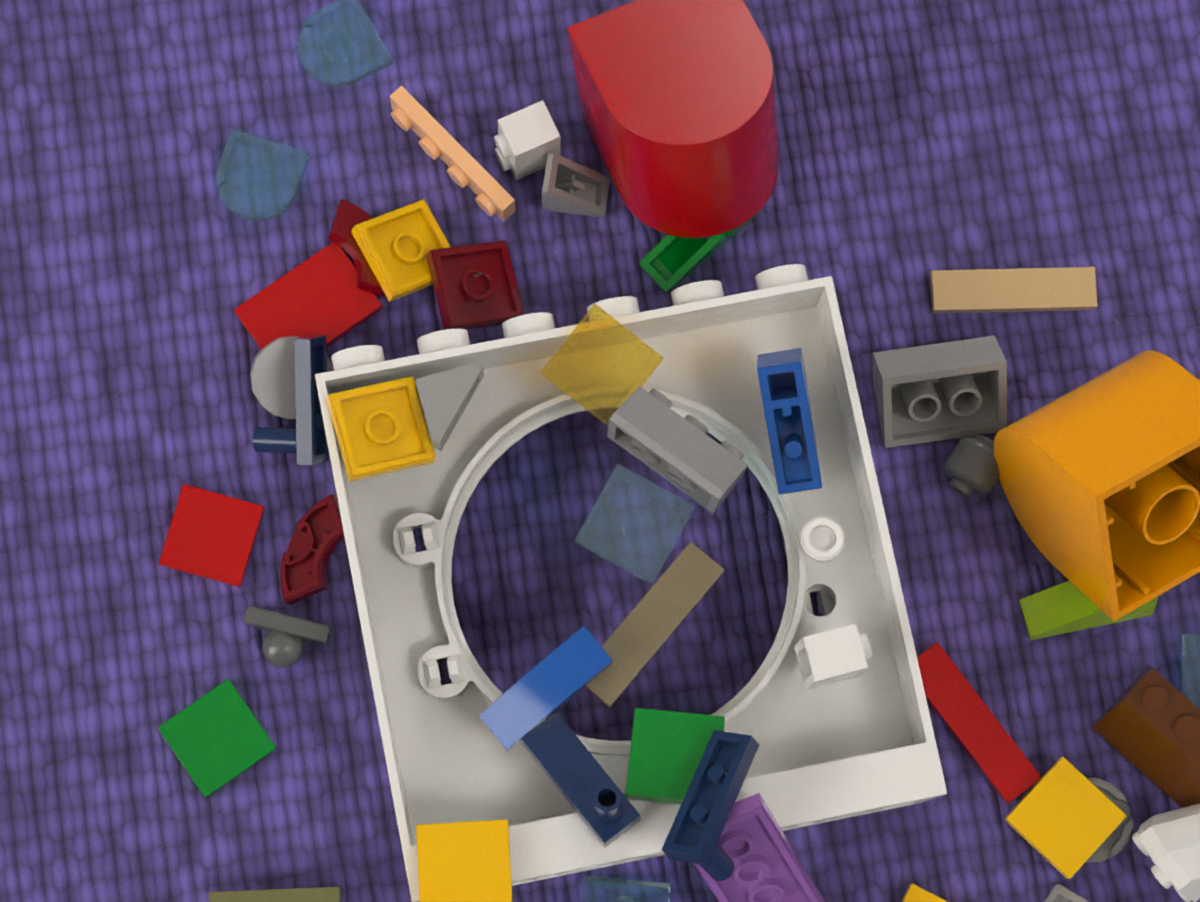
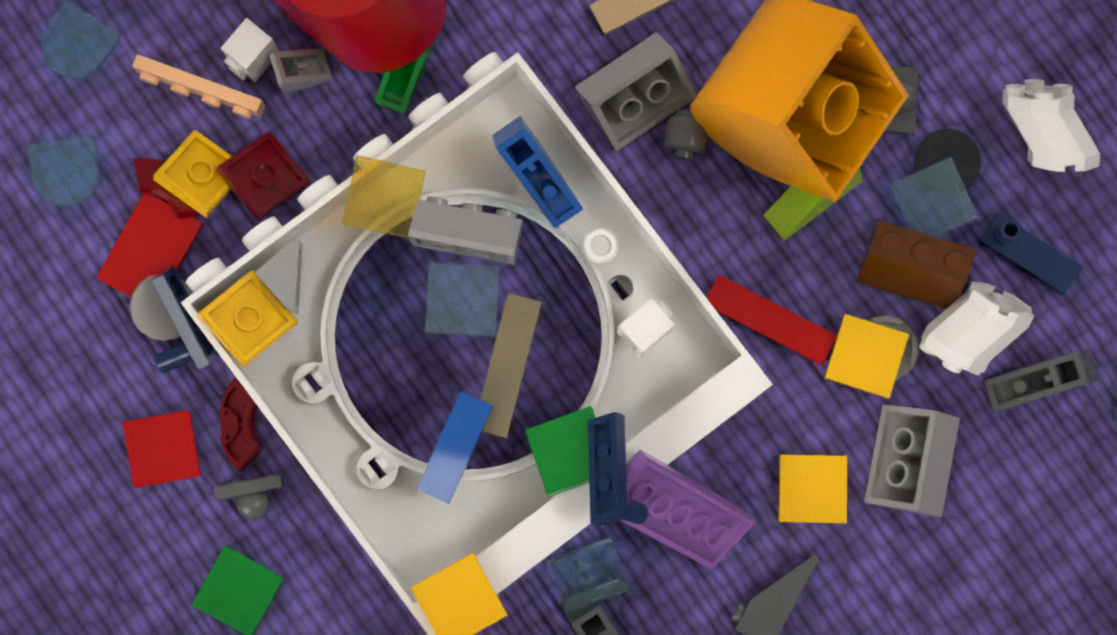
camera: 20 degrees left, 5 degrees up
(581, 779) = (510, 499): dark blue piece -> none

